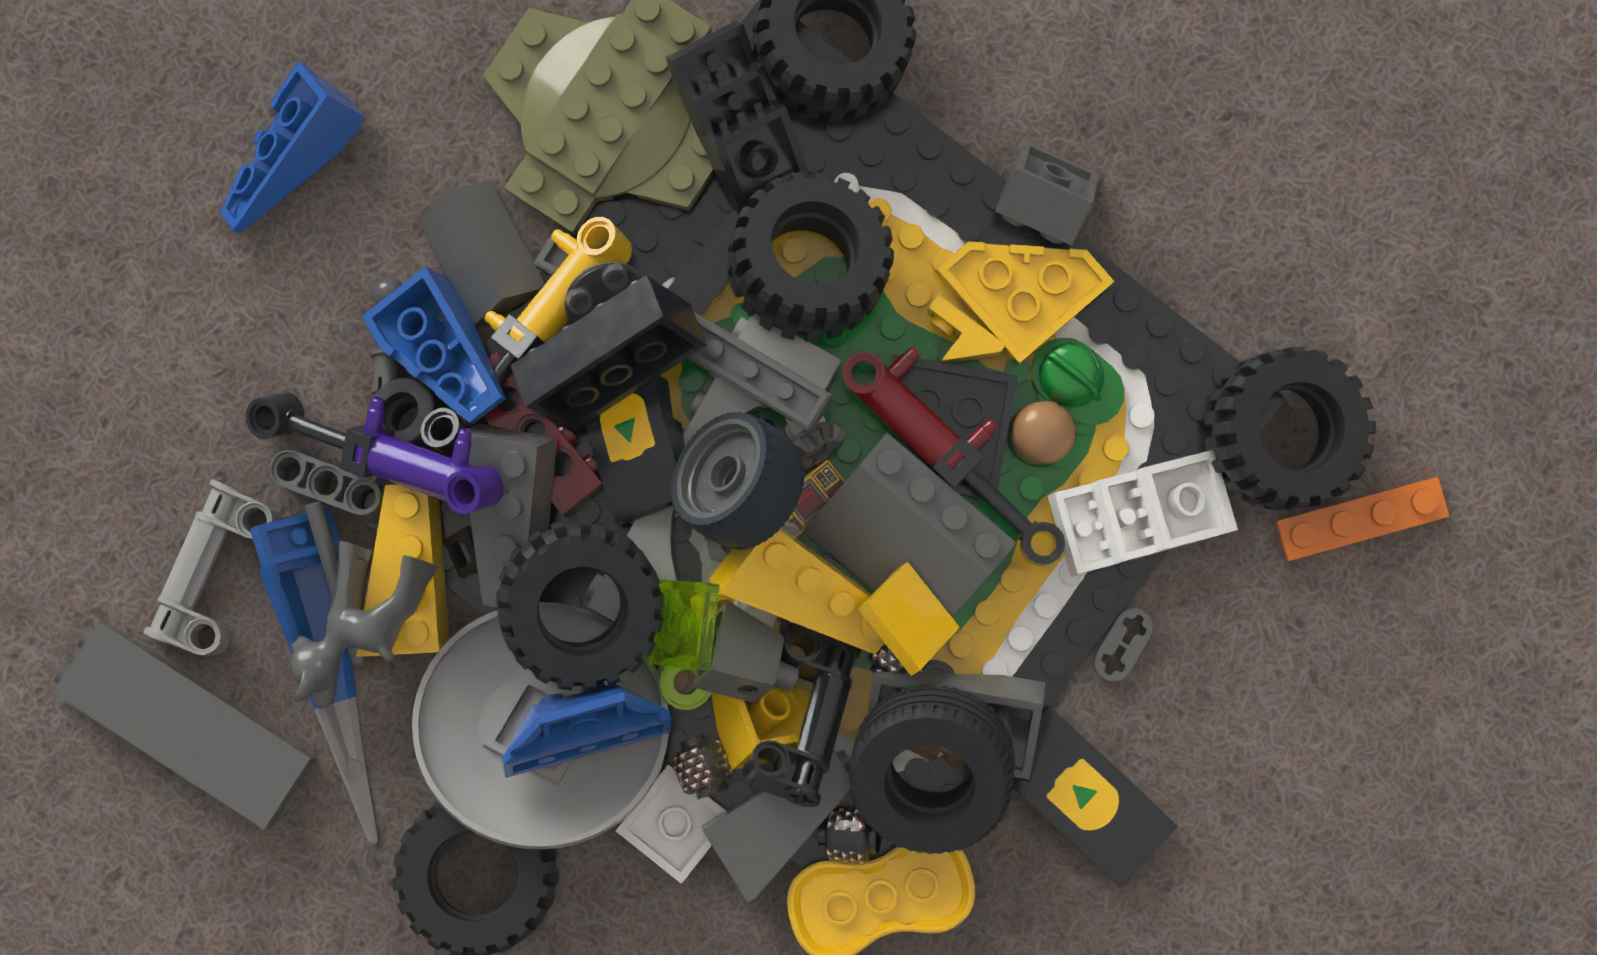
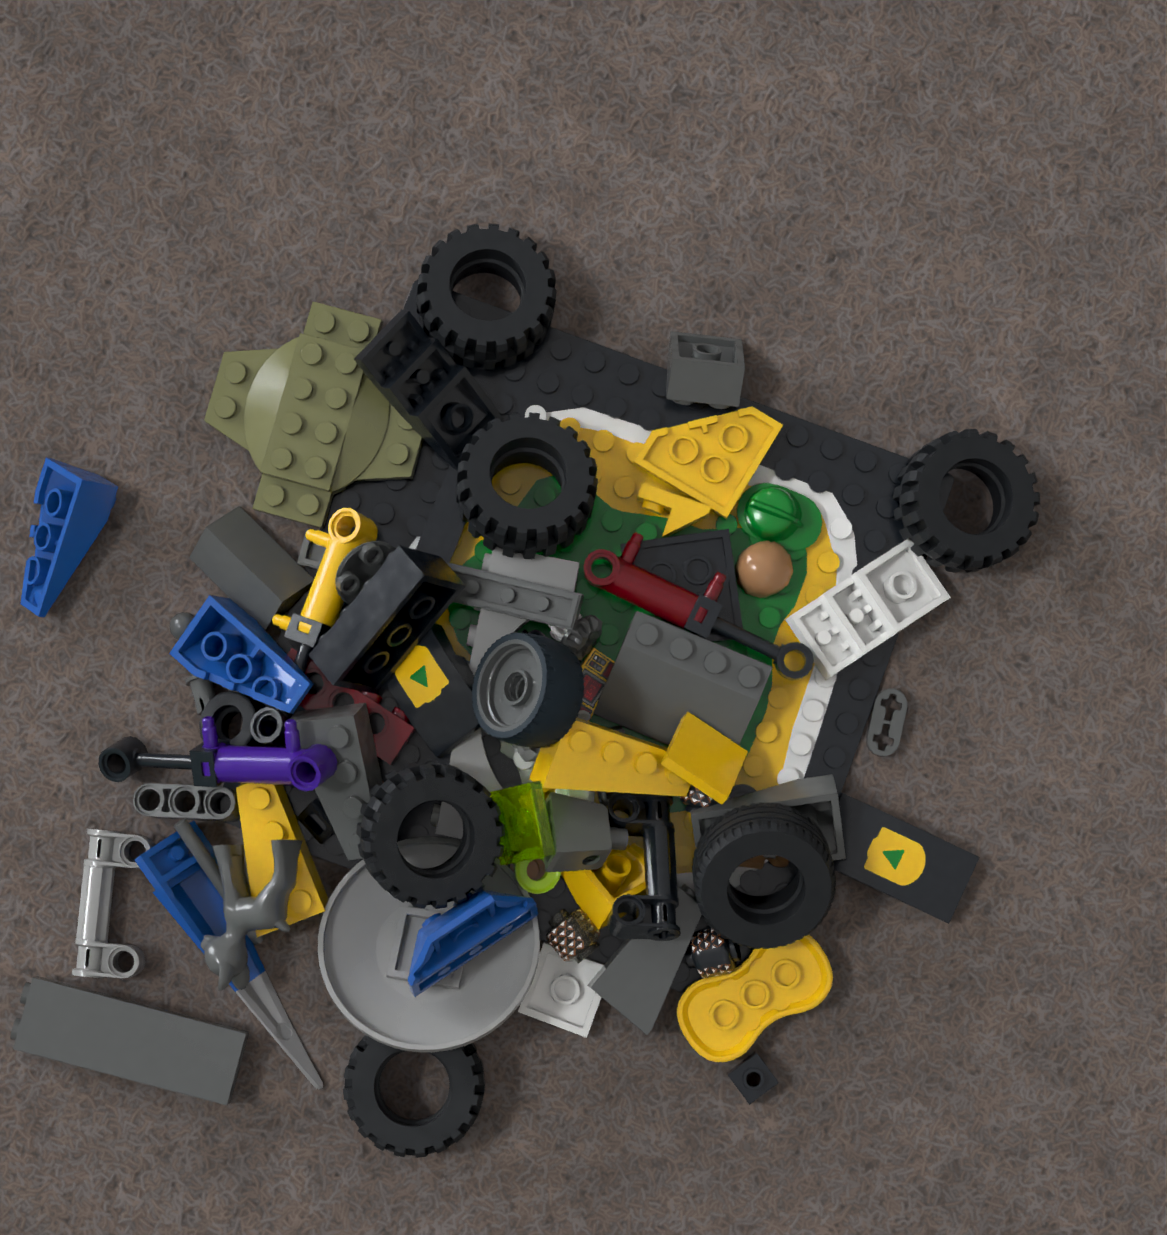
camera: 25 degrees left, 0 degrees up
(1362, 519) = (1049, 555): orange plate -> none

